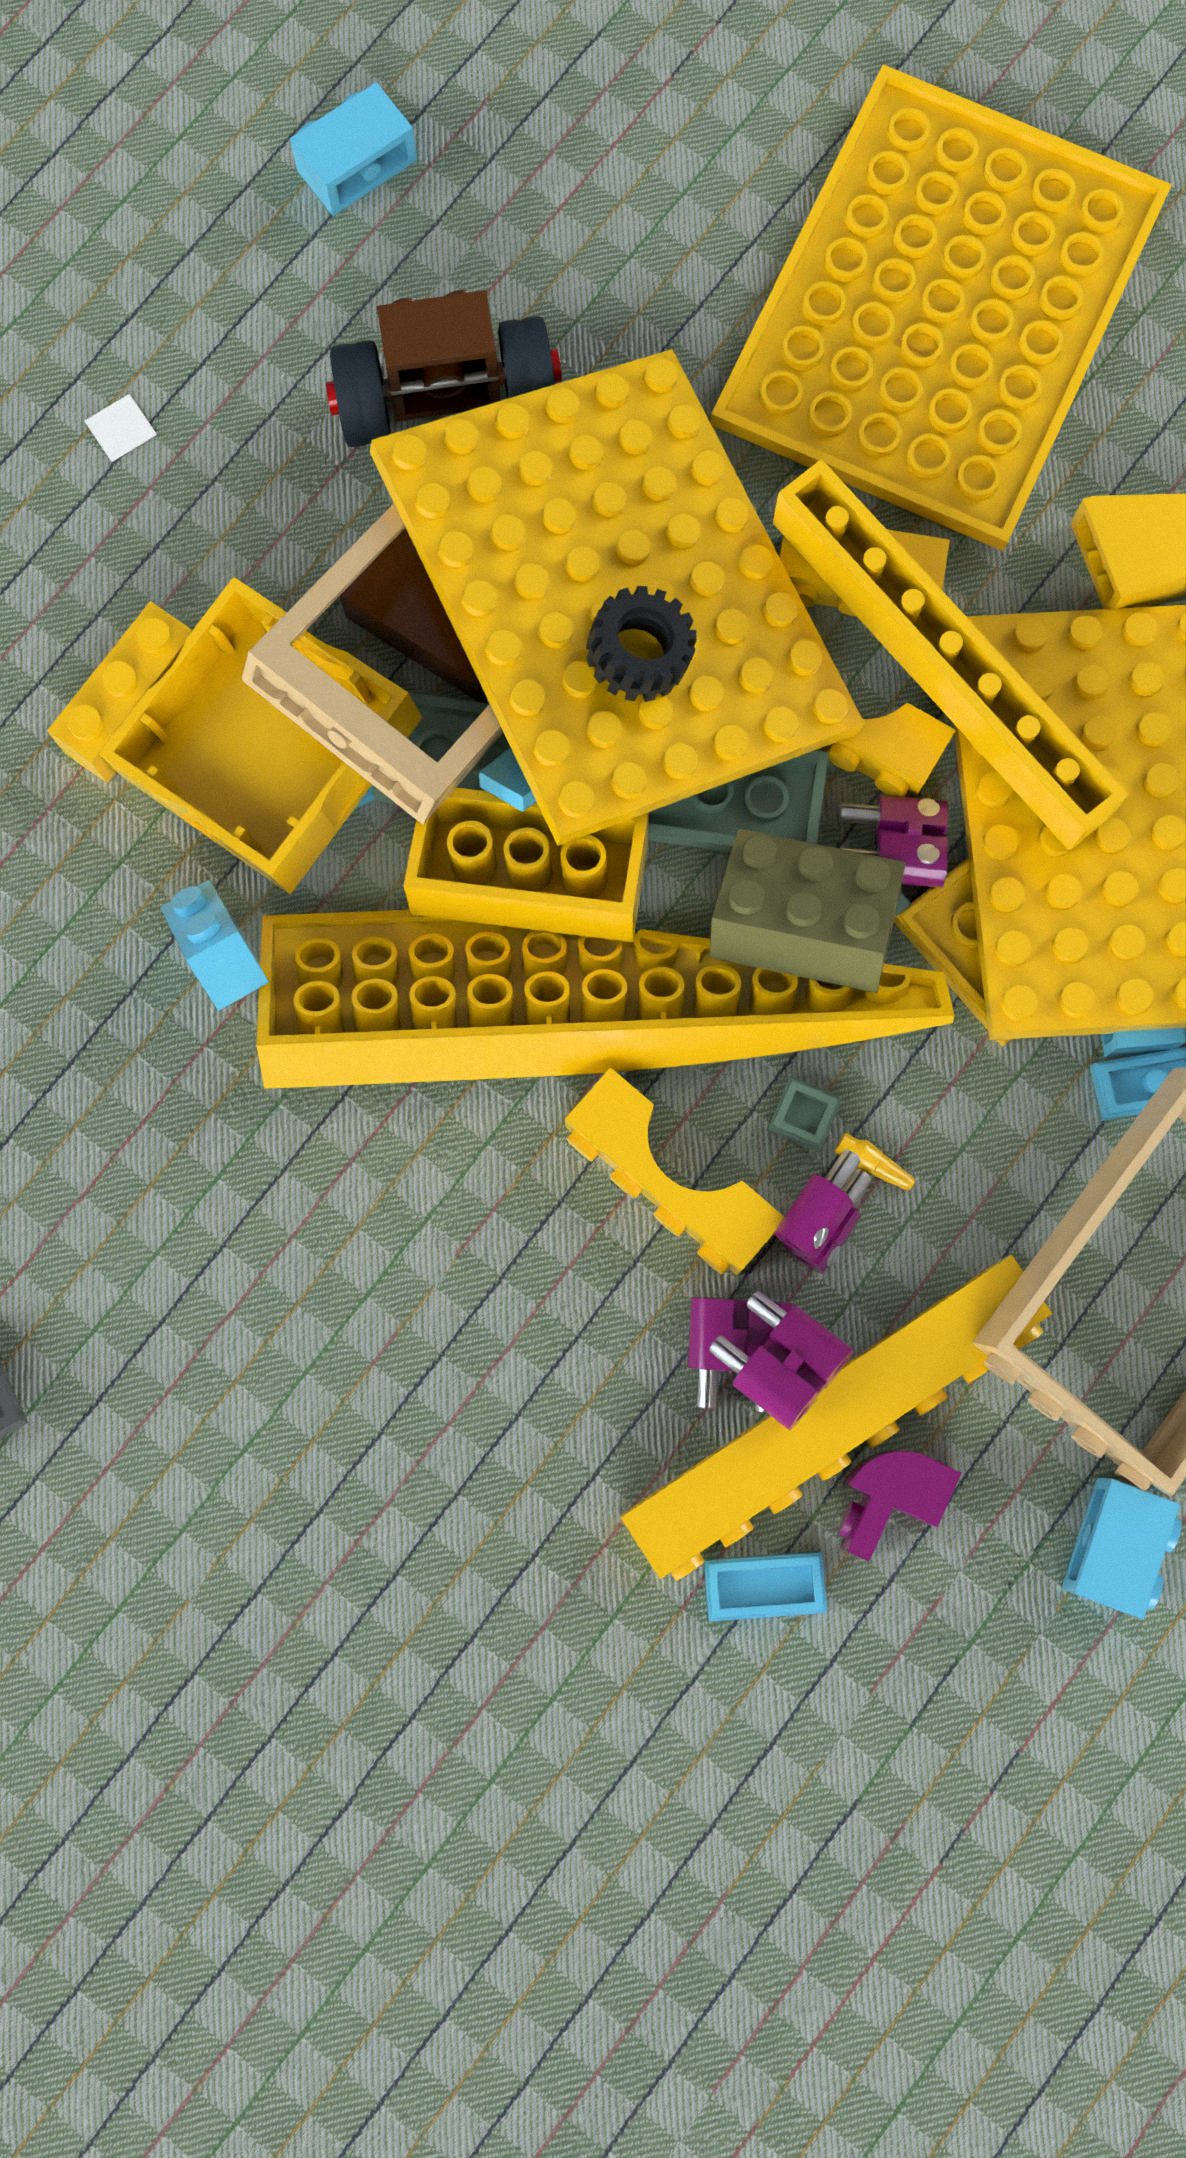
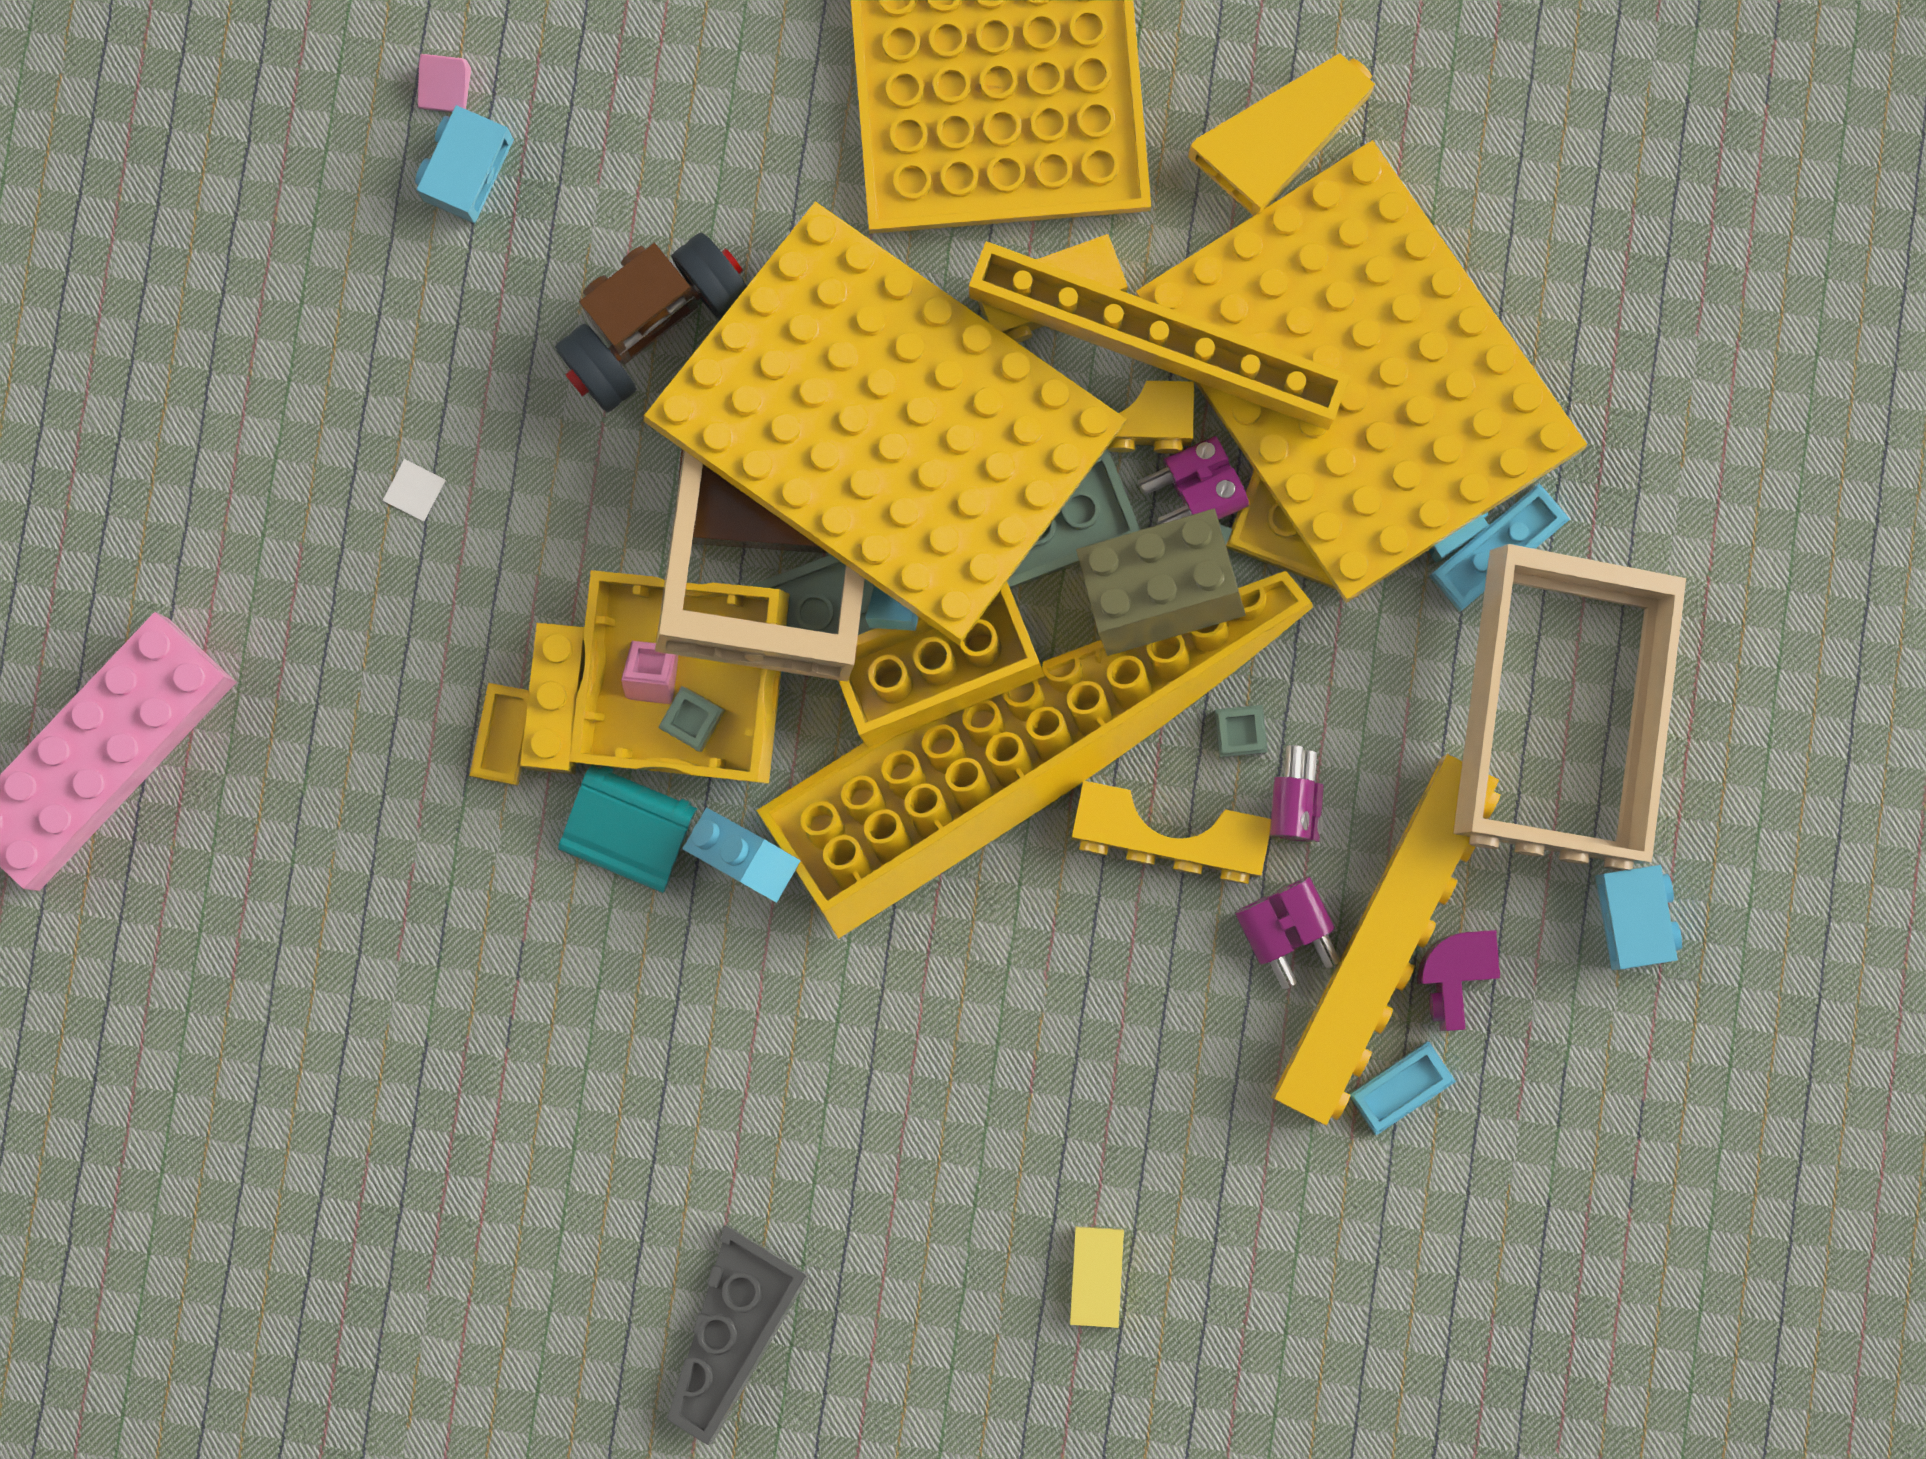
camera: 25 degrees left, 5 degrees up
(47, 700) = (500, 735): none -> yellow tile
(121, 858) = (626, 828): none -> teal piece
(236, 718) = (649, 674): none -> bright pink slope
(250, 785) = (691, 718): none -> sand green tile
(325, 1601) = (1096, 1277): none -> light yellow tile
(383, 61) = (443, 82): none -> bright pink slope
(647, 614) = (943, 435): black tyre -> none
(790, 1366) = (1334, 925): magenta piece -> none
(875, 1162) = (1310, 737): yellow piece -> none

